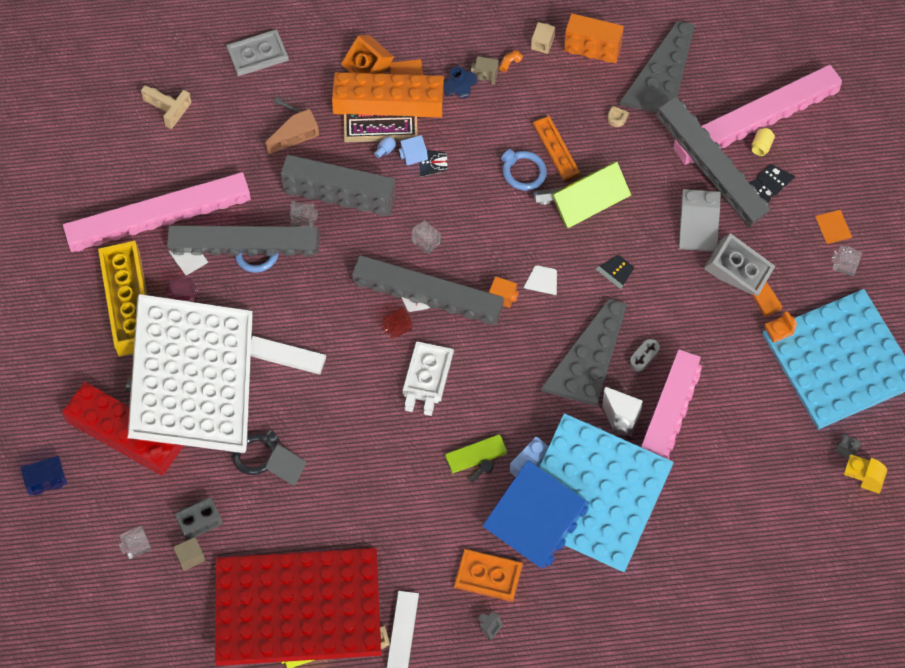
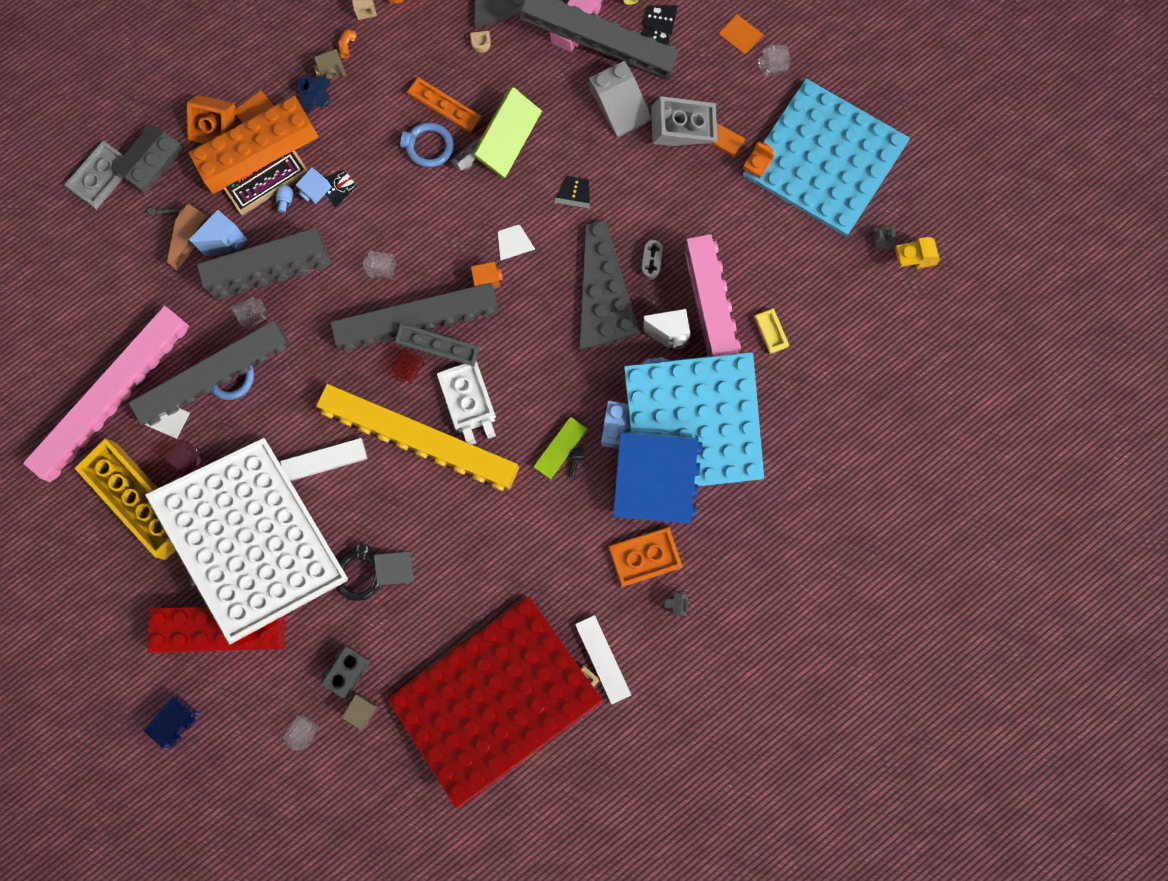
camera: 25 degrees left, 15 degrees up
(173, 108) = (56, 278): tan bracket -> none
(301, 61) = (148, 159): none -> dark grey slope
(316, 144) = (218, 236): none -> light blue slope
(370, 380) = (418, 437): none -> yellow brick
(430, 319) = (437, 344): none -> dark grey tile
(706, 465) = (771, 331): none -> light yellow tile

